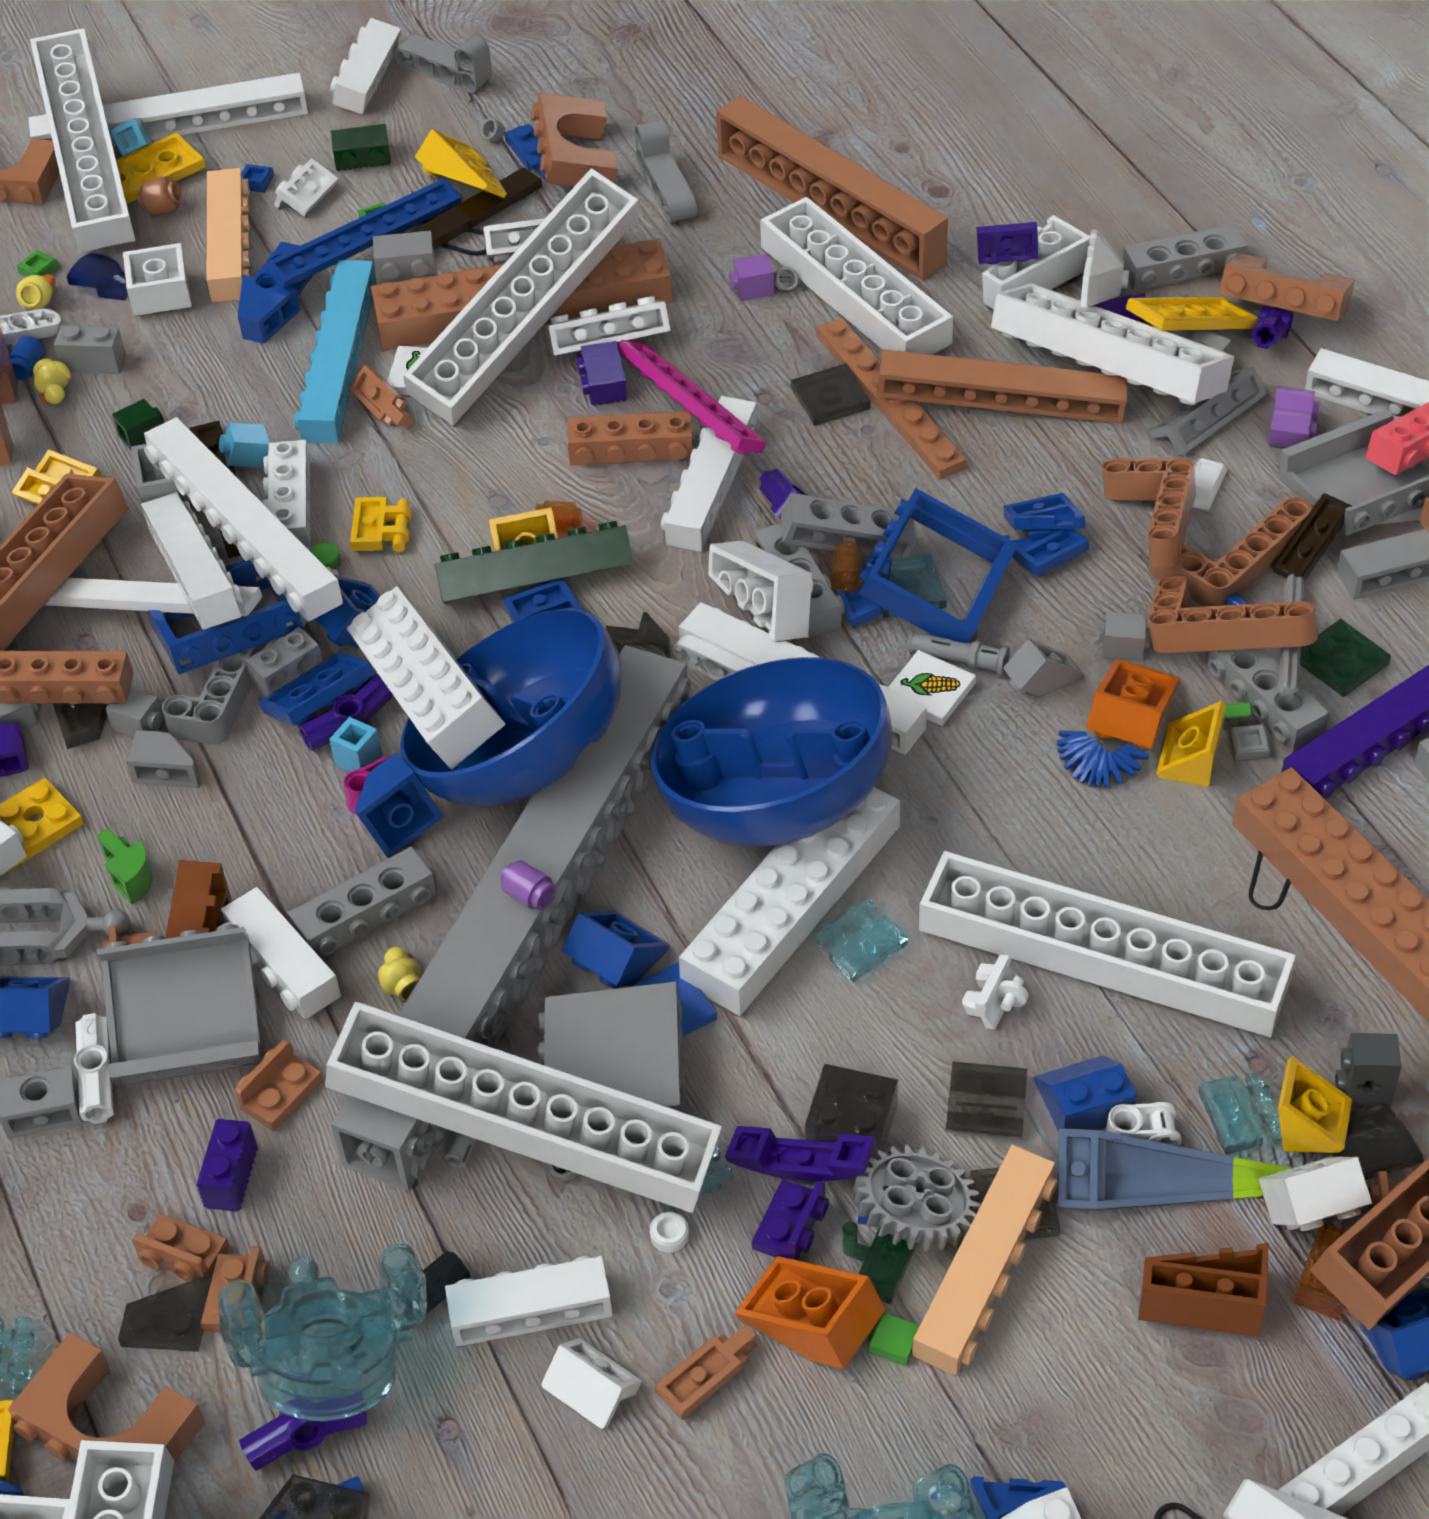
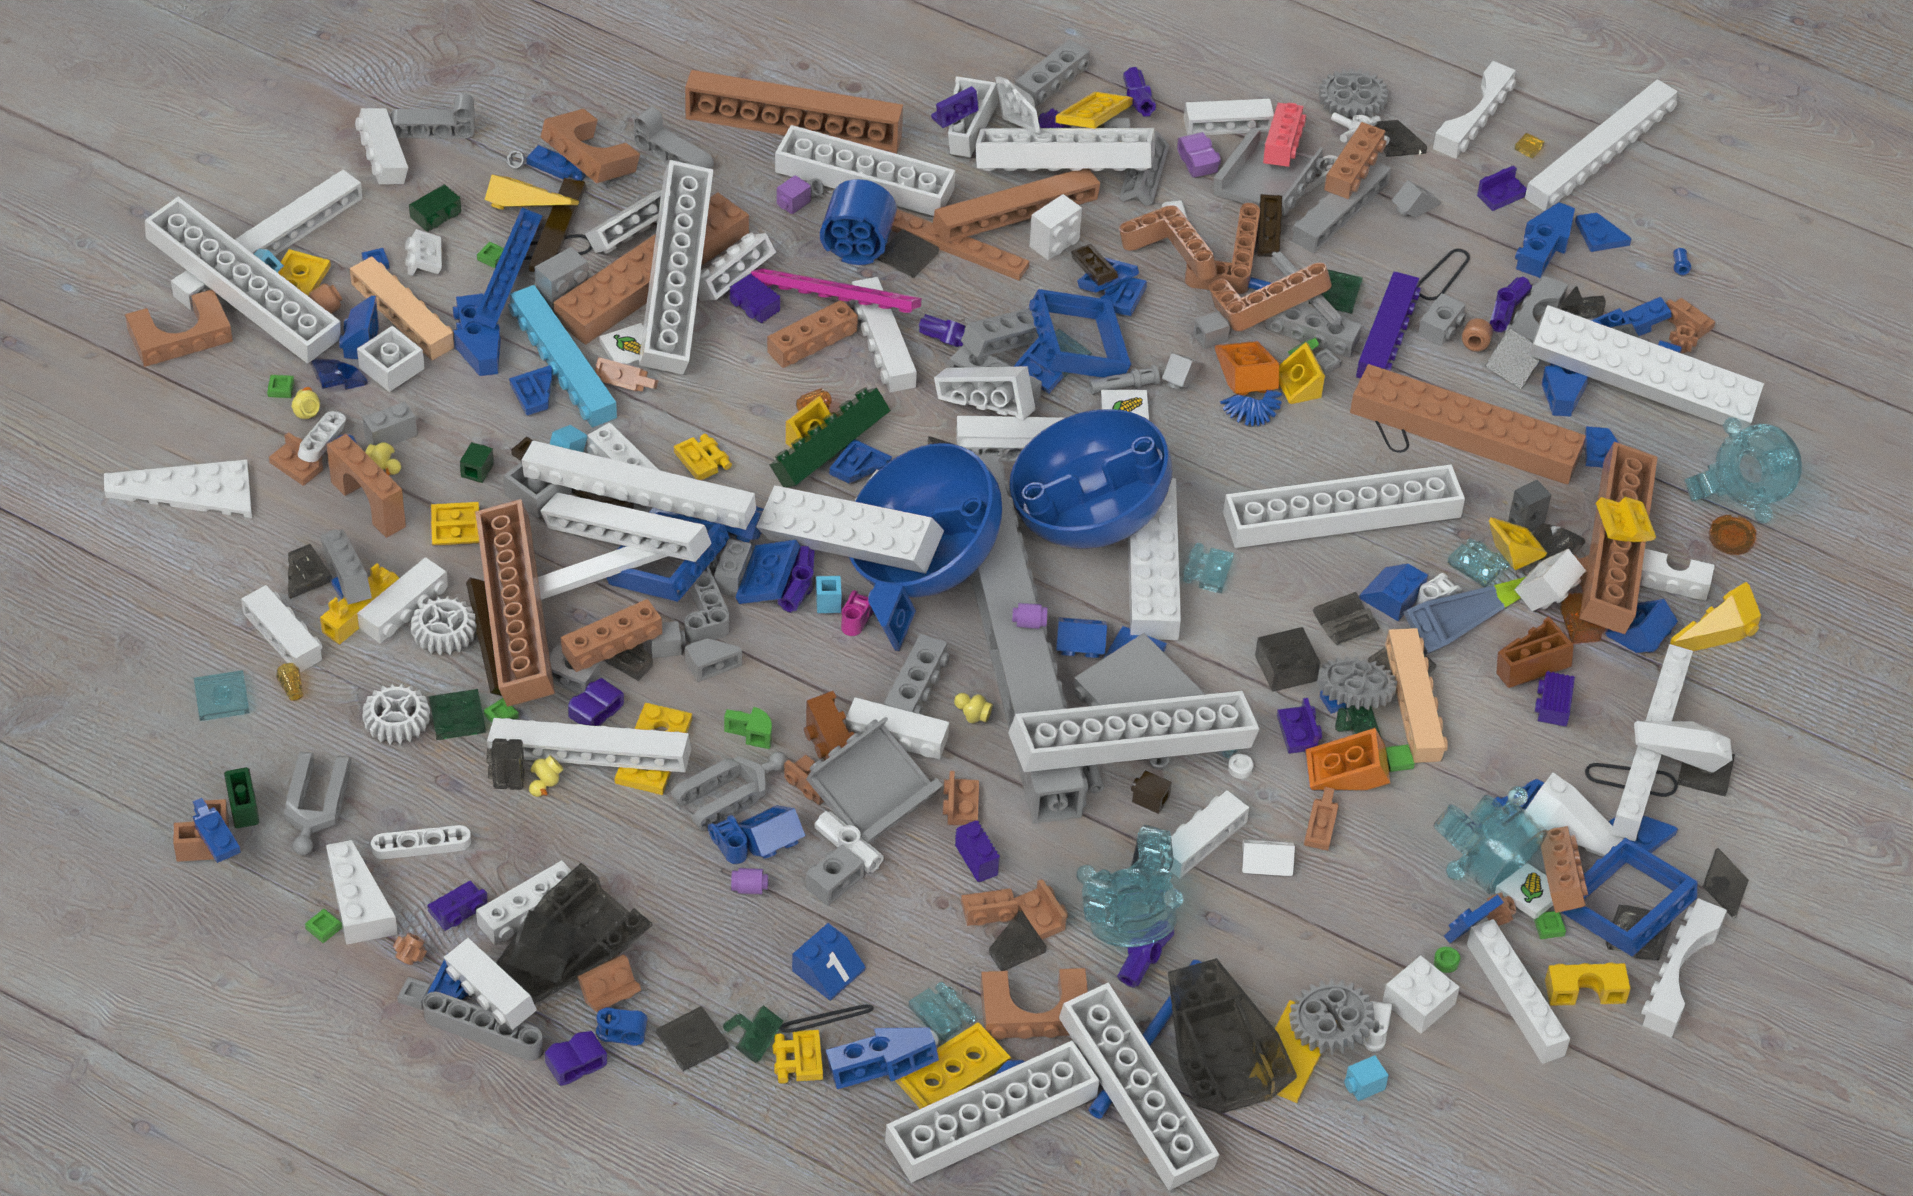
camera: 40 degrees left, 0 degrees up
(165, 229) = (359, 327): none -> blue slope
(274, 373) = (533, 389): none -> blue wing
(514, 1204) = (1151, 791): none -> dark brown brick
(783, 329) = (858, 221): none -> blue brick
(797, 1158) = (1287, 691): dark purple slope -> none
(847, 567) = (1027, 355): clear orange brick -> none
(999, 993) = (1299, 552): white hips -> none
(1024, 430) = (1055, 227): none -> white brick
(1038, 495) = (1094, 264): none -> dark brown tile
(1192, 1373) = (1555, 698): none -> dark purple brick
(1249, 280) = (1161, 68): nougat arch -> none

